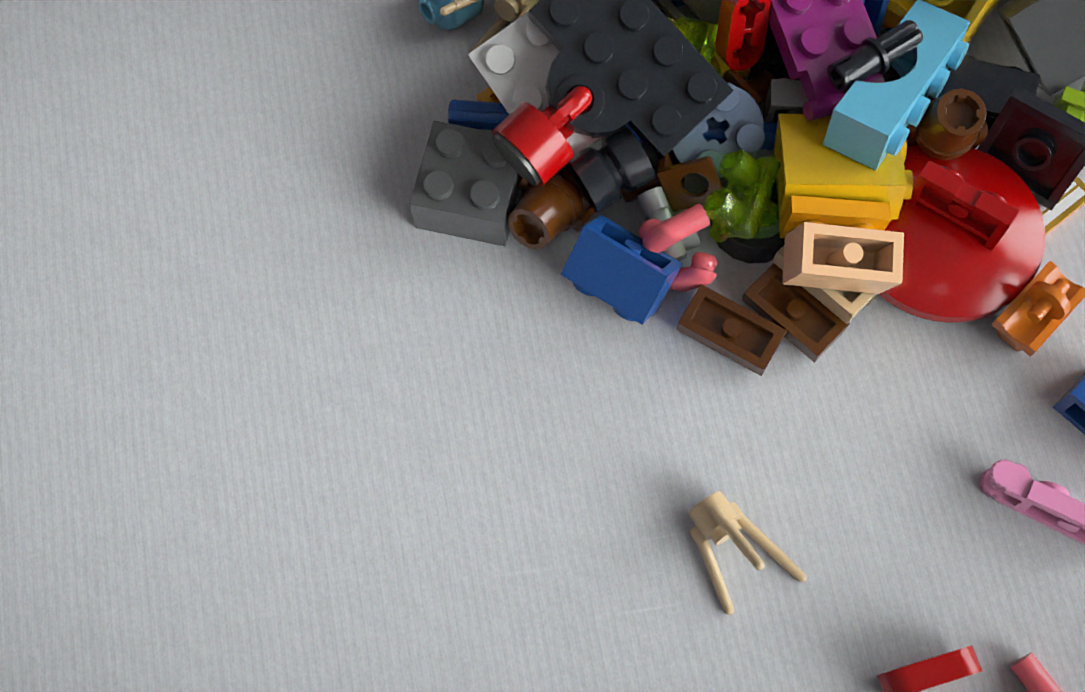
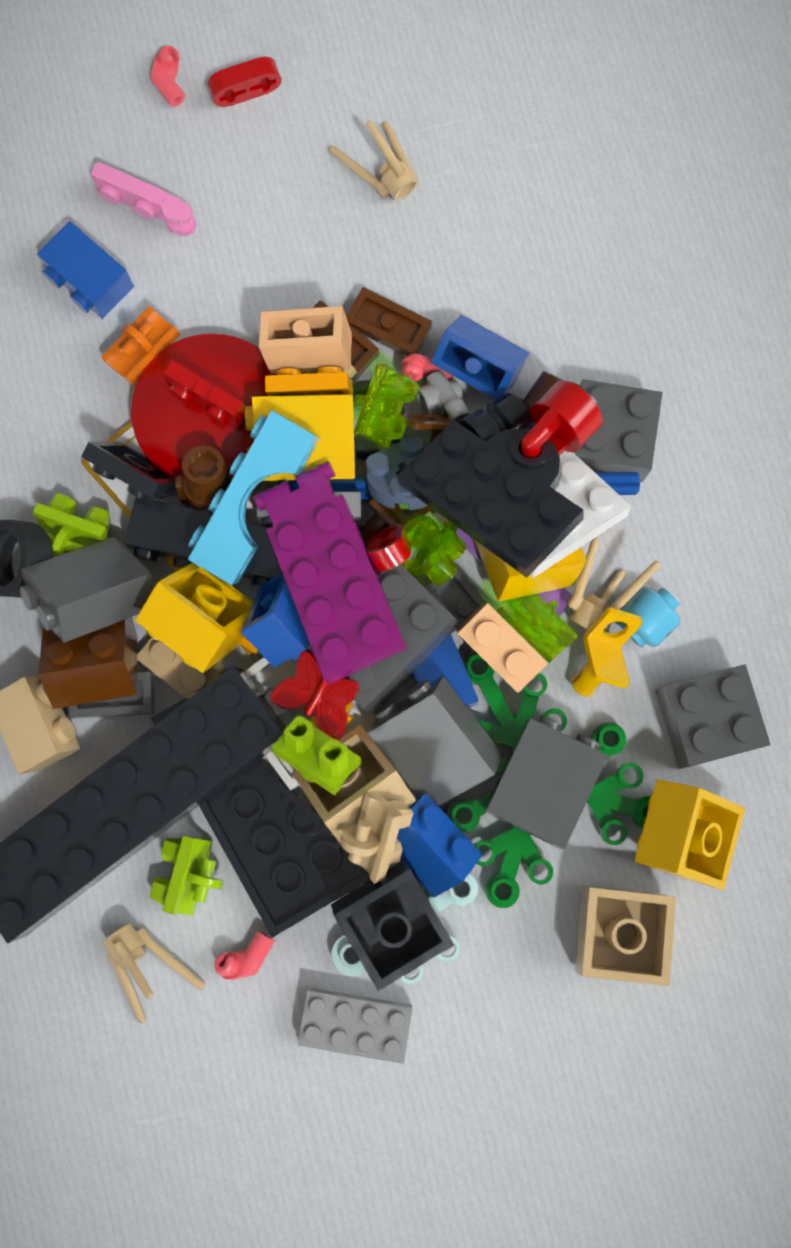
camera: 175 degrees right, 10 degrees up
(660, 235) = (440, 372): coral arm -> none
(874, 55) = (276, 503): black axle -> none

